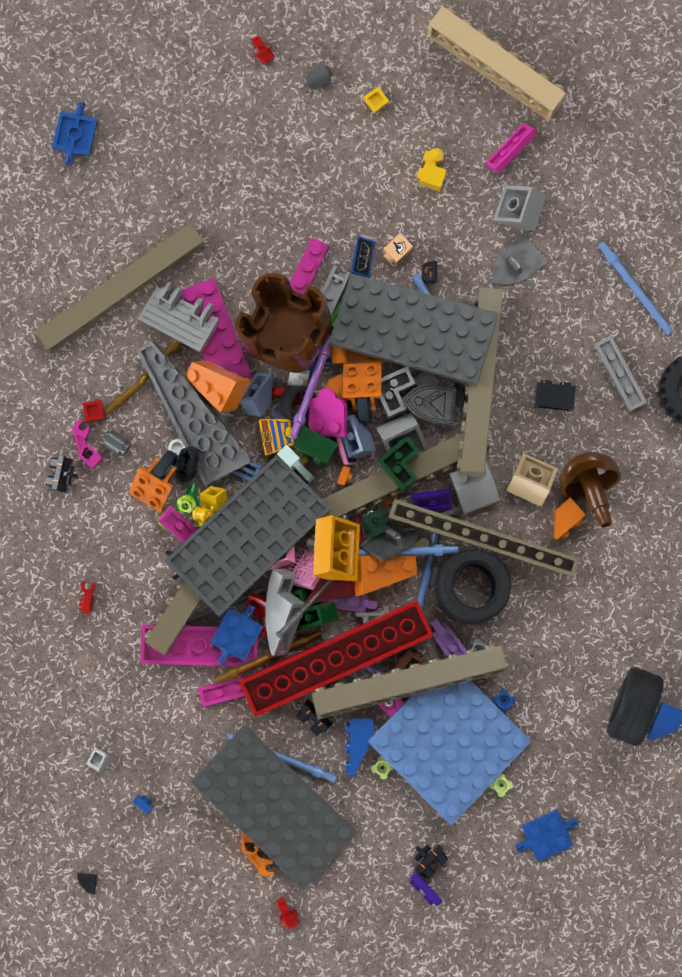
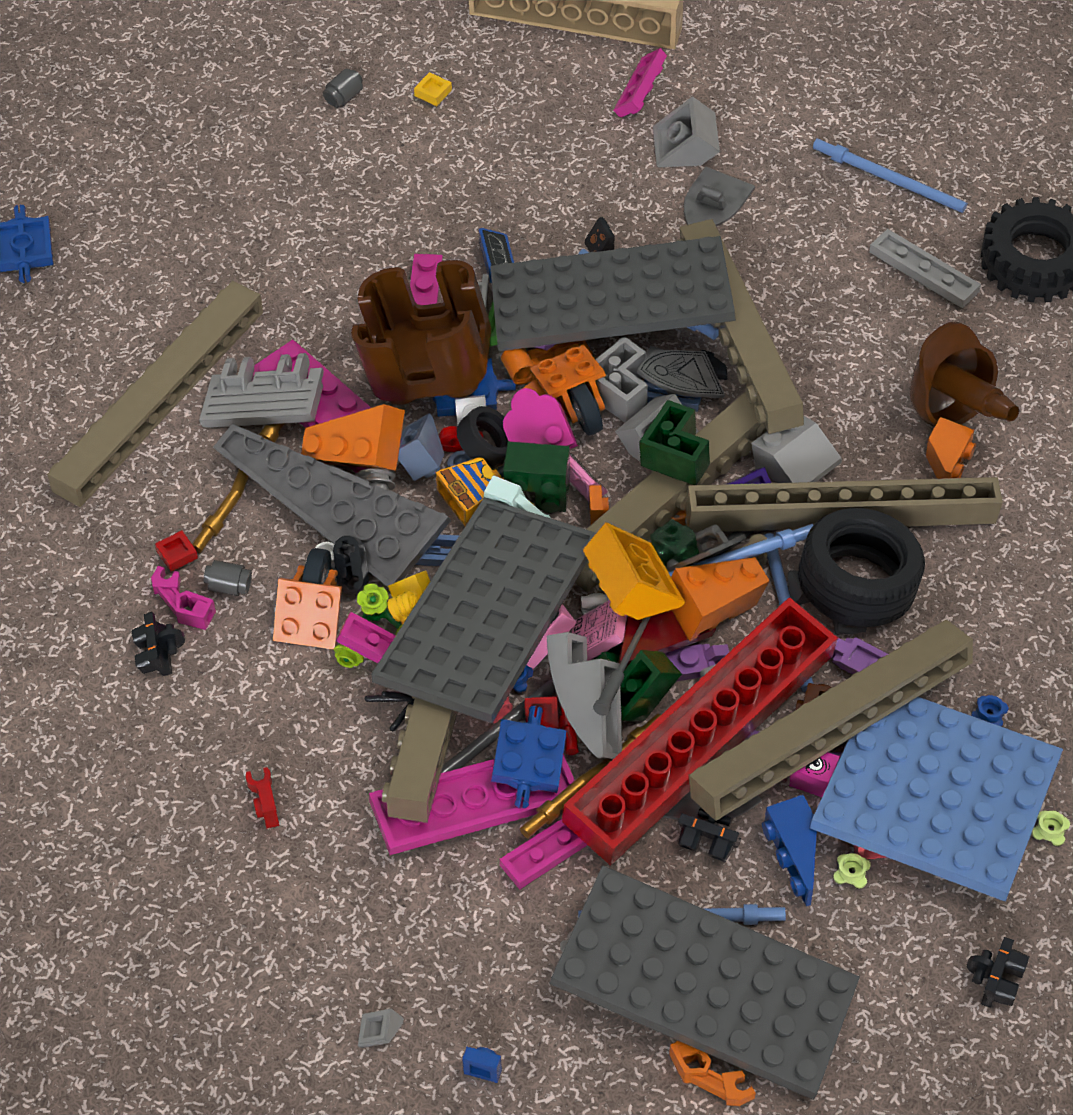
camera: 25 degrees left, 30 degrees down
(265, 54) = (252, 85): red piece -> none
(300, 418) = (498, 437): medium lavender bar -> none
(358, 439) = (595, 451): sand blue slope -> none
(397, 249) = (542, 228): light nougat brick -> none
(419, 883) = (1008, 1014): dark purple plate -> none
(431, 175) = (548, 137): yellow brick -> none
(532, 480) = (874, 425): tan slope -> none
(554, 396) = (849, 319): black brick -> none

